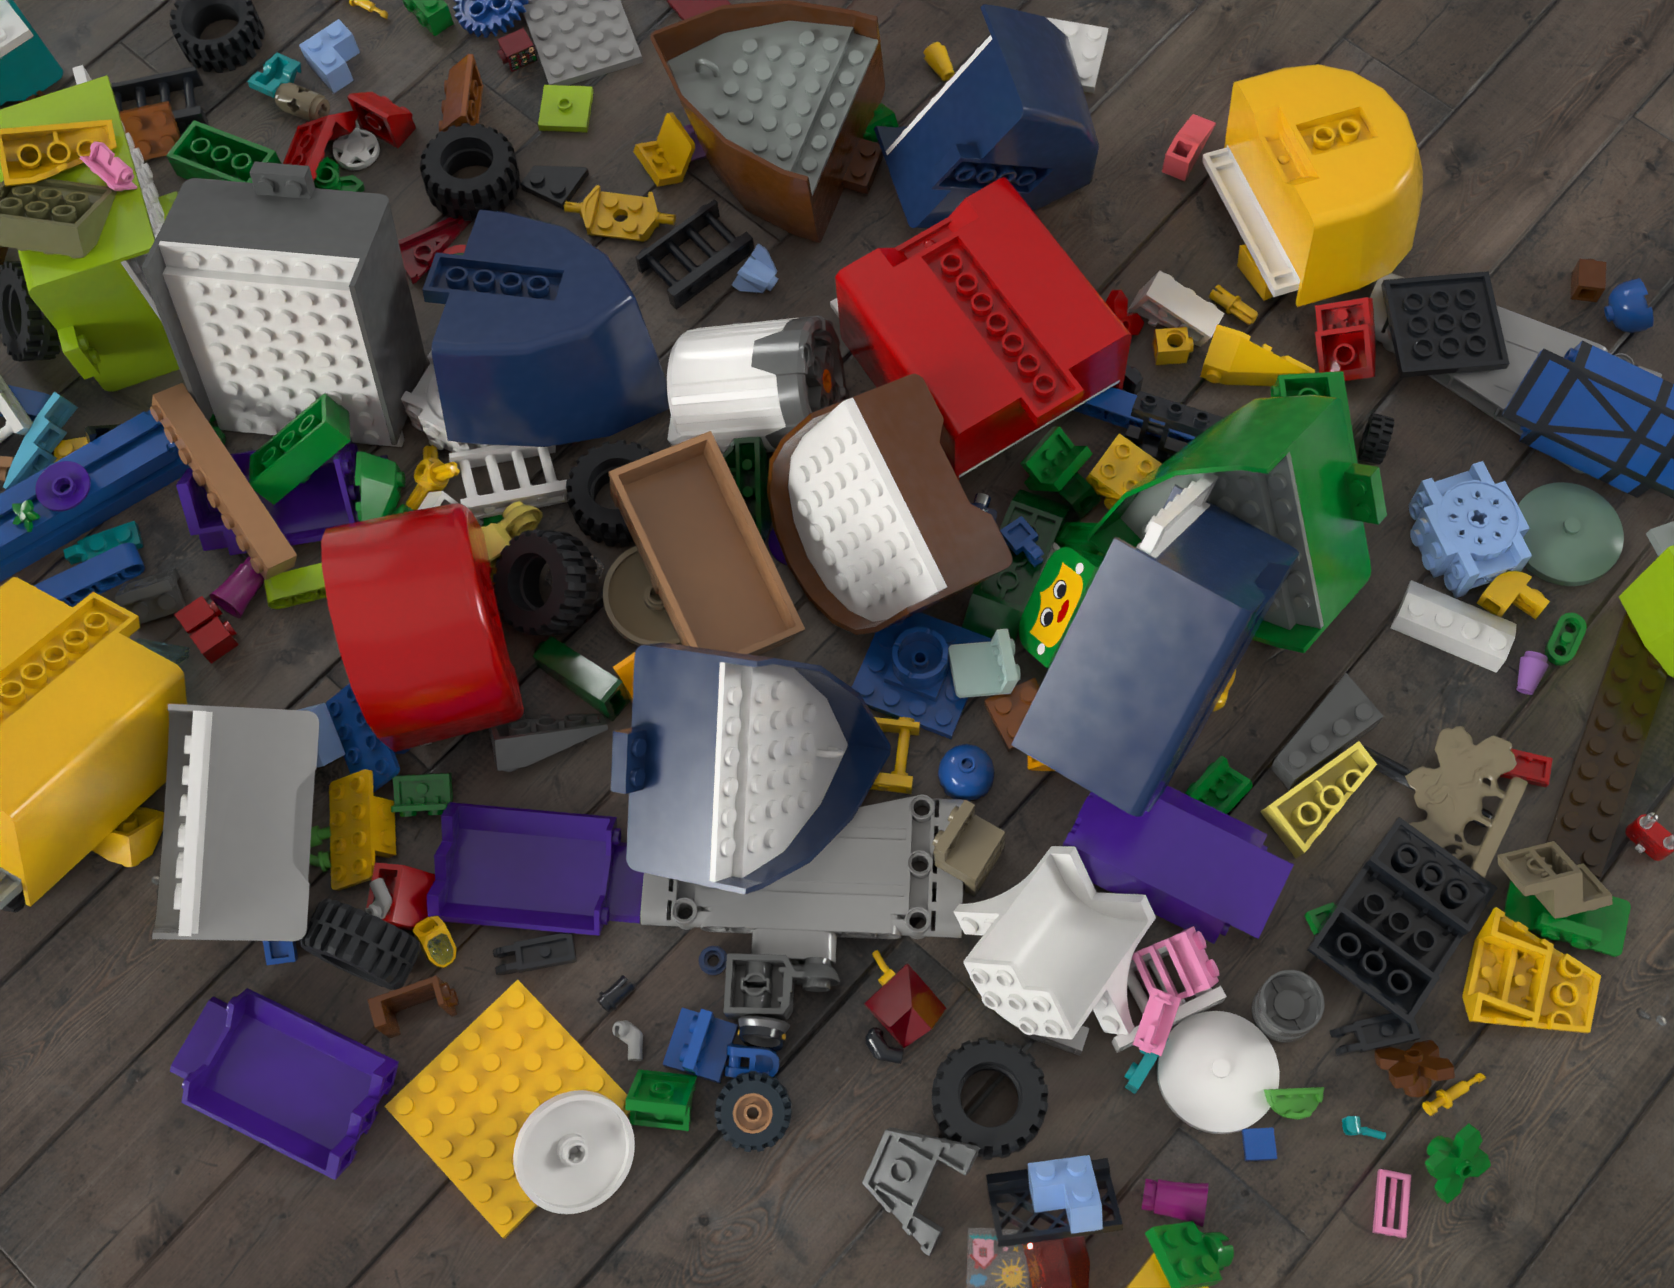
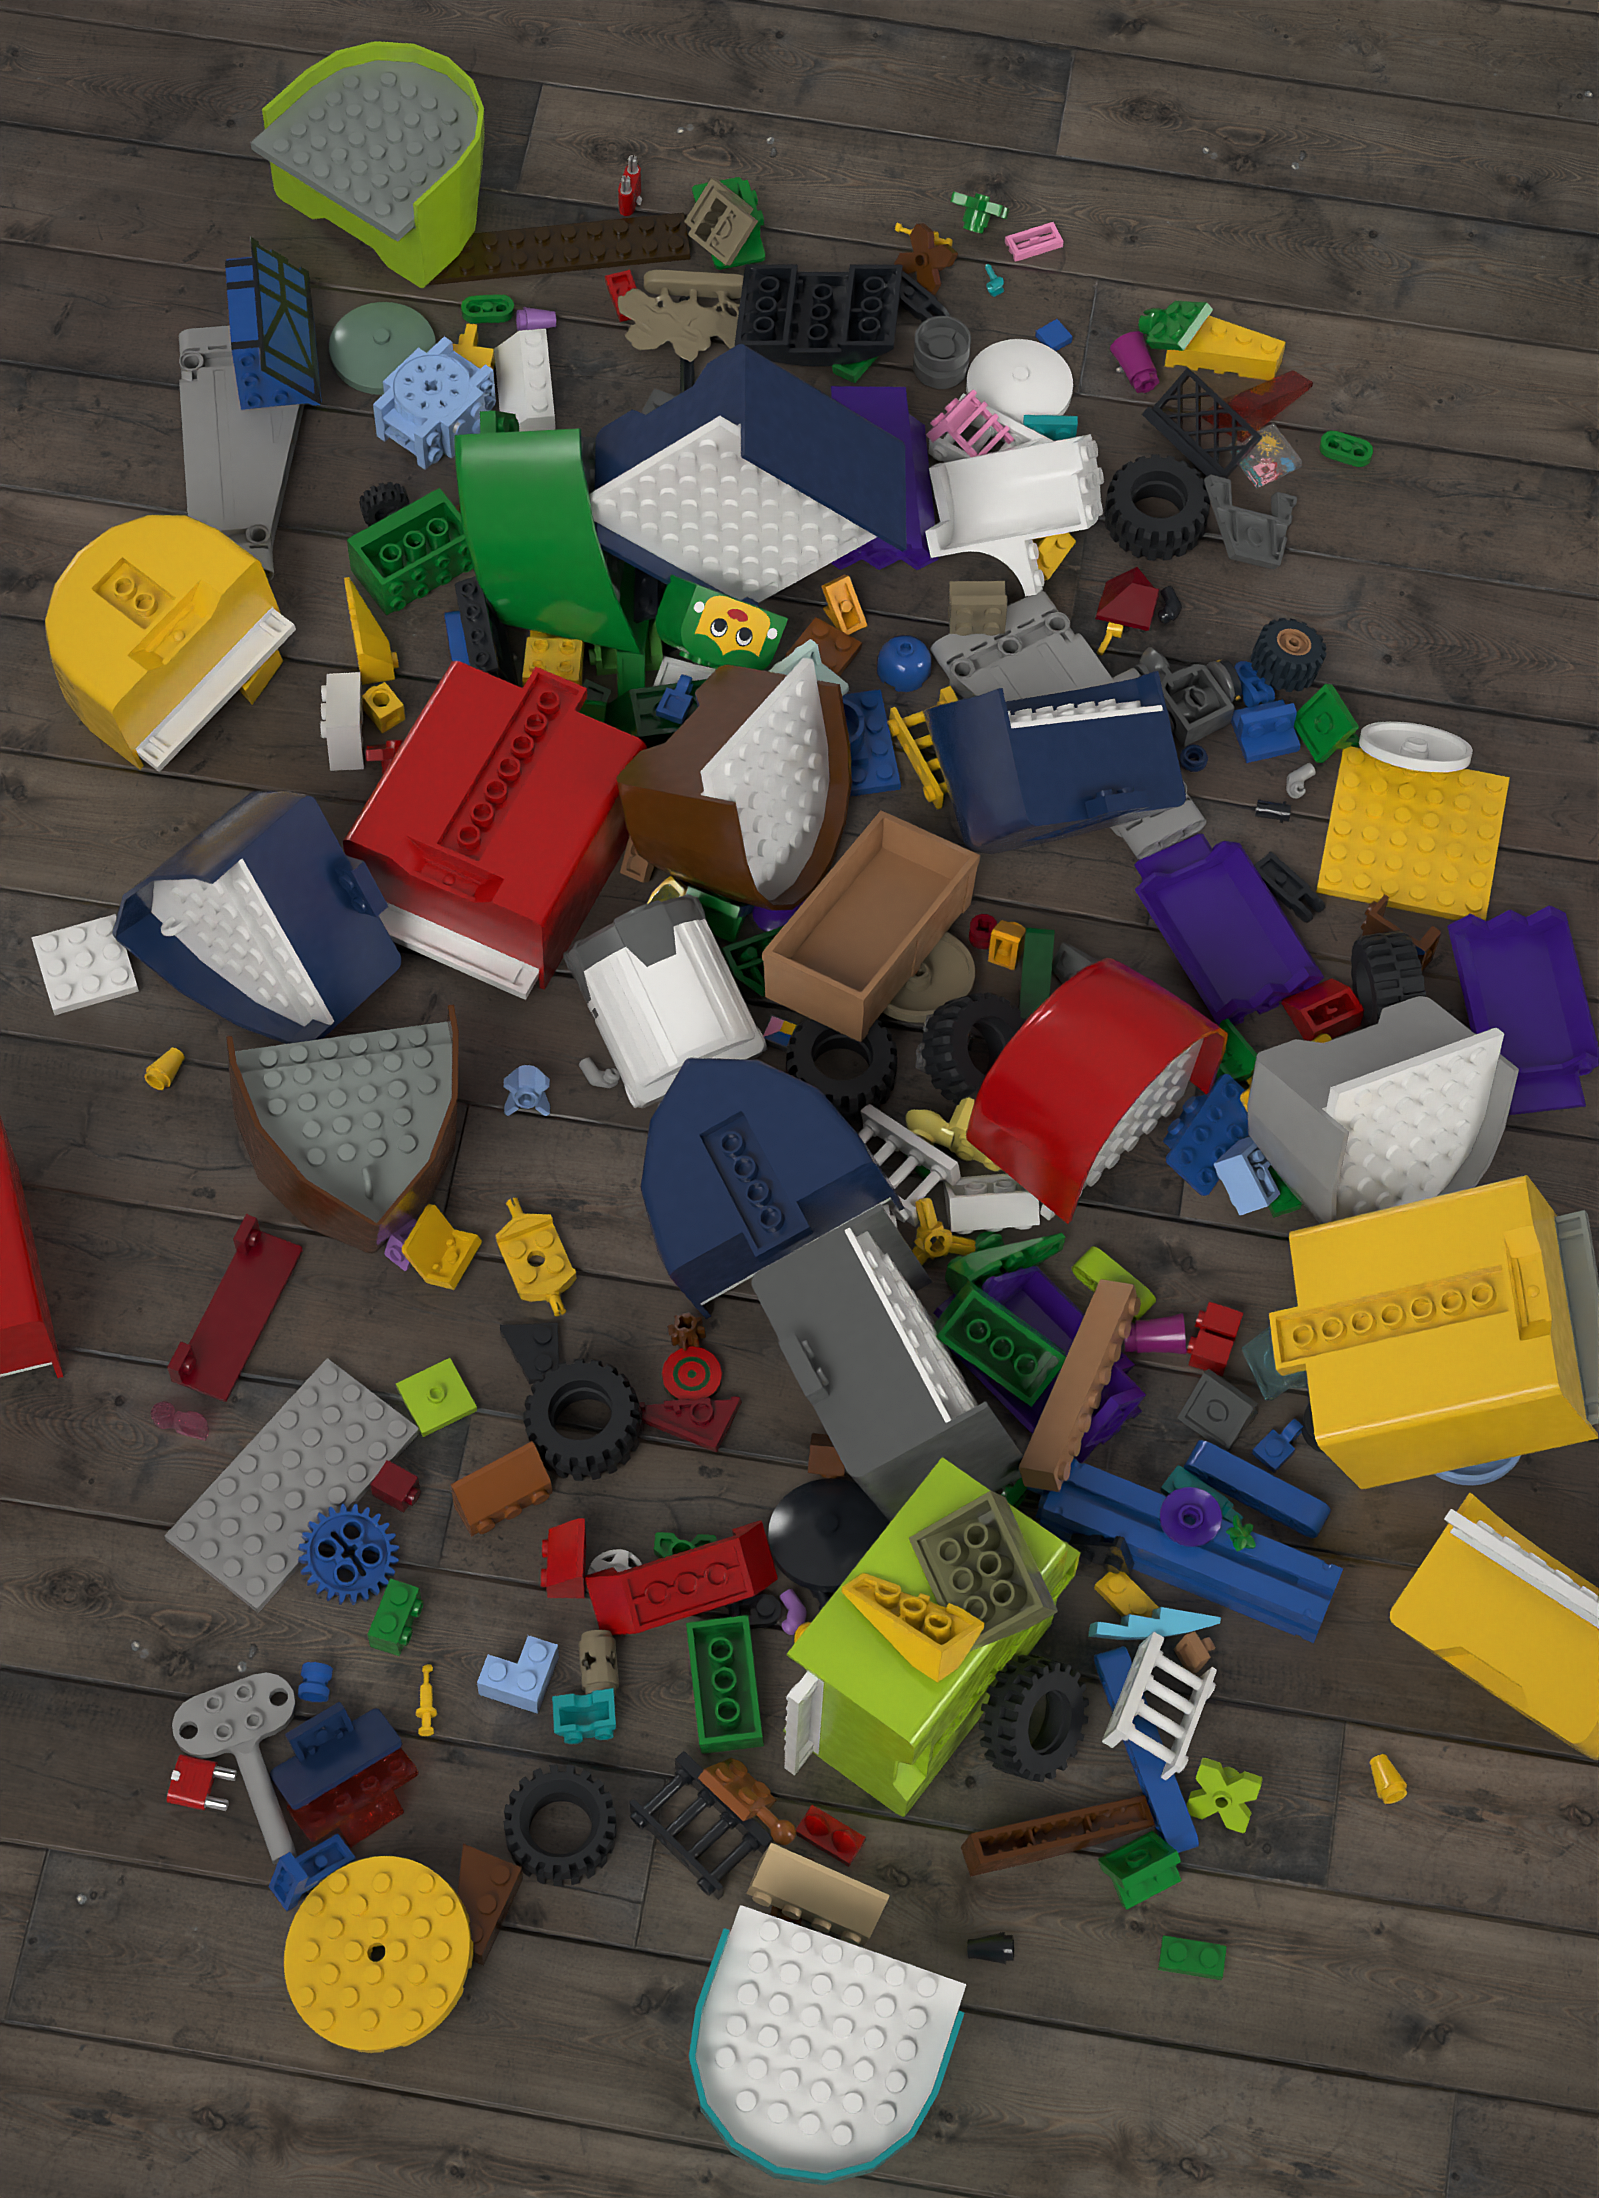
camera: 130 degrees left, 5 degrees down
(109, 168) = (895, 1557): bright pink hinge -> none
(382, 899) = (1343, 999): light grey arm -> none
(435, 941) = (1334, 960): yellow rock -> none
(699, 275) = (534, 1133): black fence -> none
(1068, 1186) = (1185, 407): light blue brick -> none
(1157, 1022) = (1022, 420): bright pink hinge -> none
(1187, 147) = (142, 795): coral slope -> none
(1233, 305) = (304, 680): yellow axle -> none
(1294, 1102) = (1007, 327): bright green tile -> none
(1346, 338) = (300, 568): red slope -> none
(1444, 324) = (239, 491): black plate -> none
(1527, 981) = (808, 224): yellow wedge -> none
(1588, 280) = (105, 424): reddish brown brick -> none
(1629, 307) = (122, 378): blue cylinder -> none

